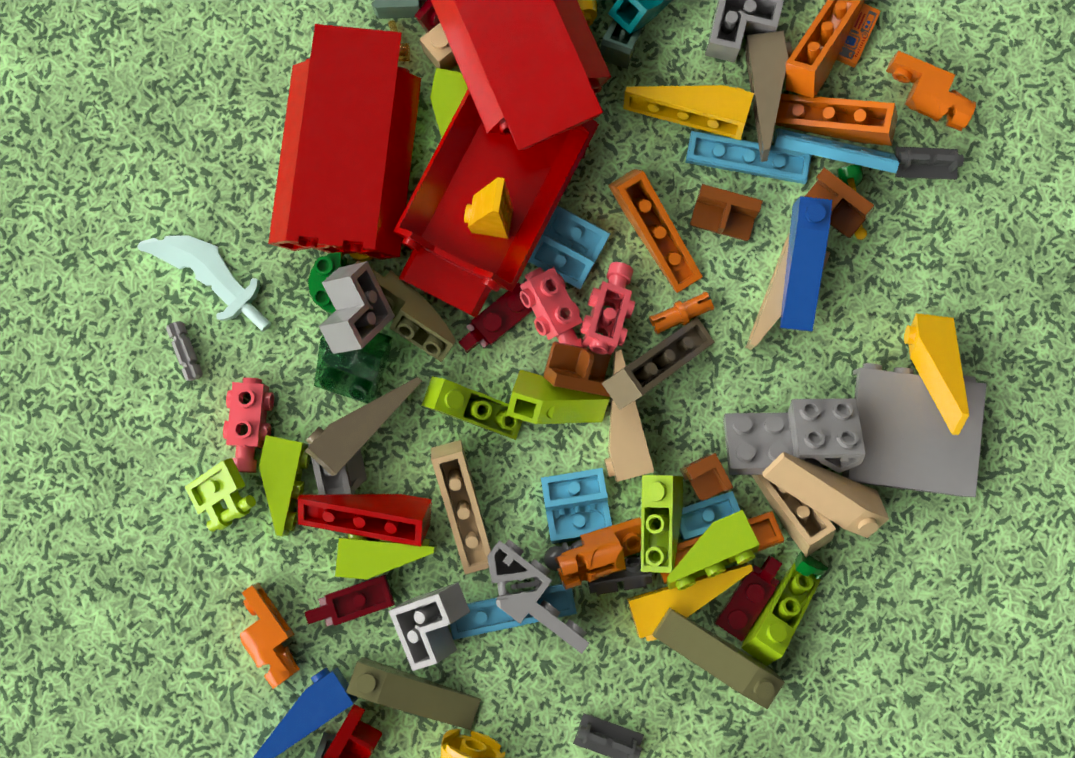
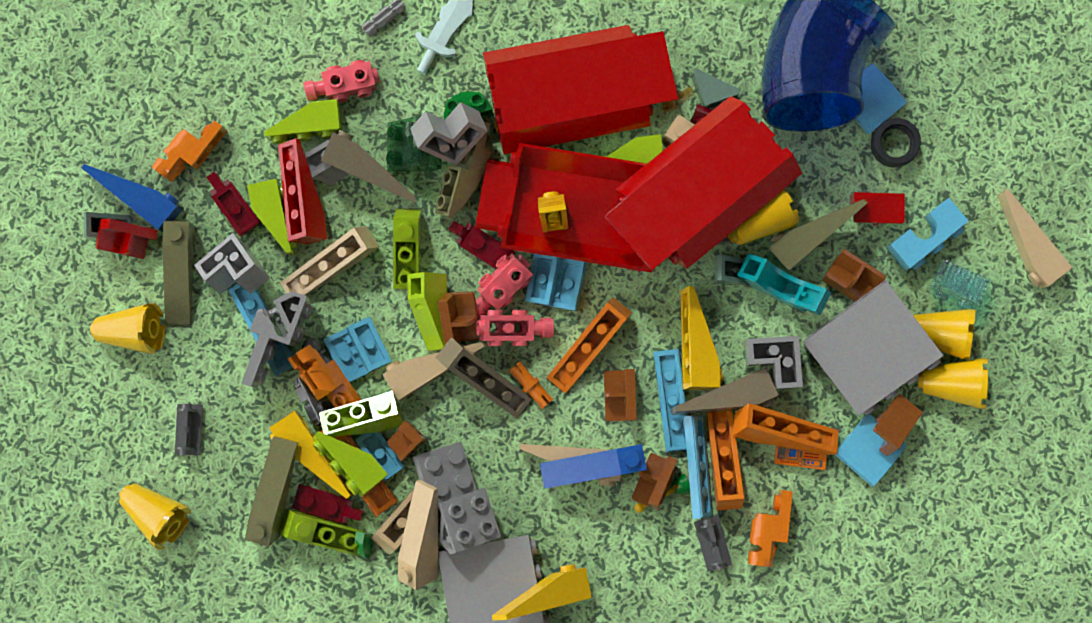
camera: 75 degrees right, 0 degrees up
(220, 485) = (287, 74): lime plate -> none

